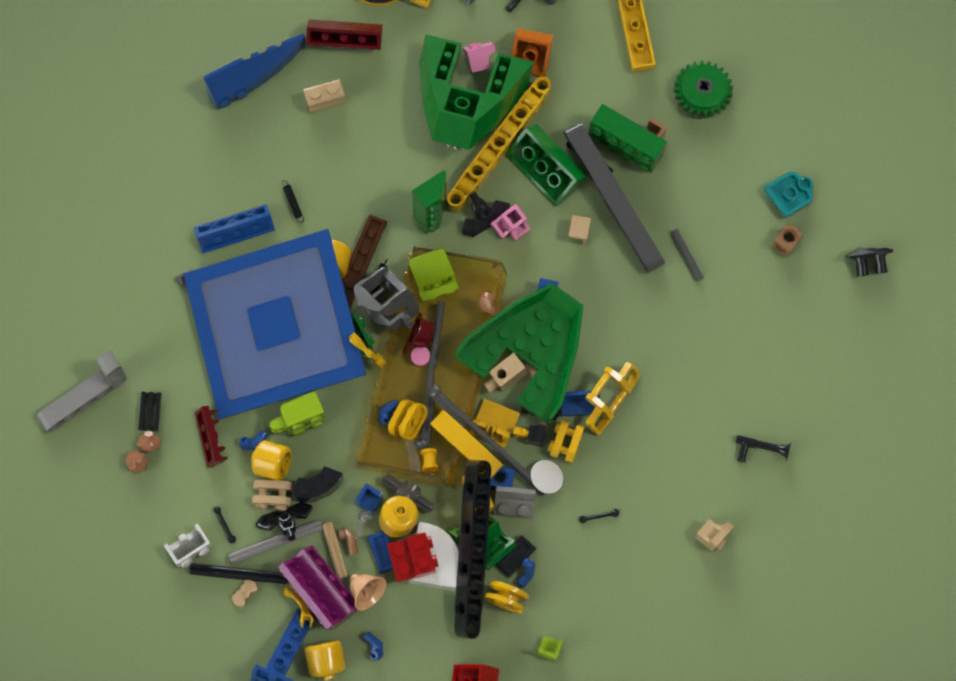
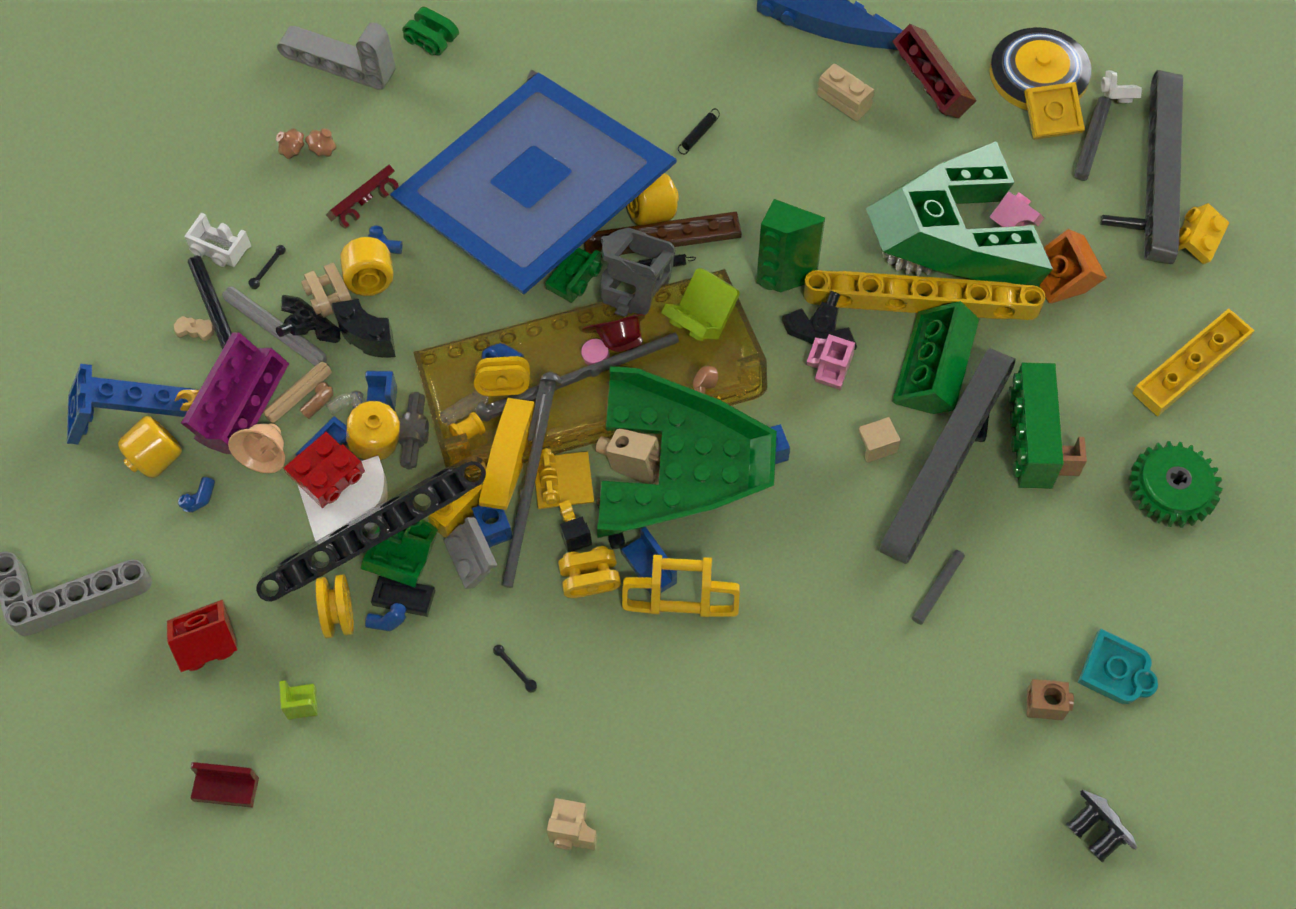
camera: 65 degrees right, 10 degrees down
(110, 328) = (430, 31): none -> green brick
(151, 395) = (357, 125): black tile -> none
(235, 228) = (625, 93): blue fence -> none
(299, 415) = (439, 263): lime hinge -> none
(356, 341) = (554, 258): yellow piece -> none
(546, 476) = (528, 575): white sticker -> none
(746, 442) = (729, 799): black piece -> none

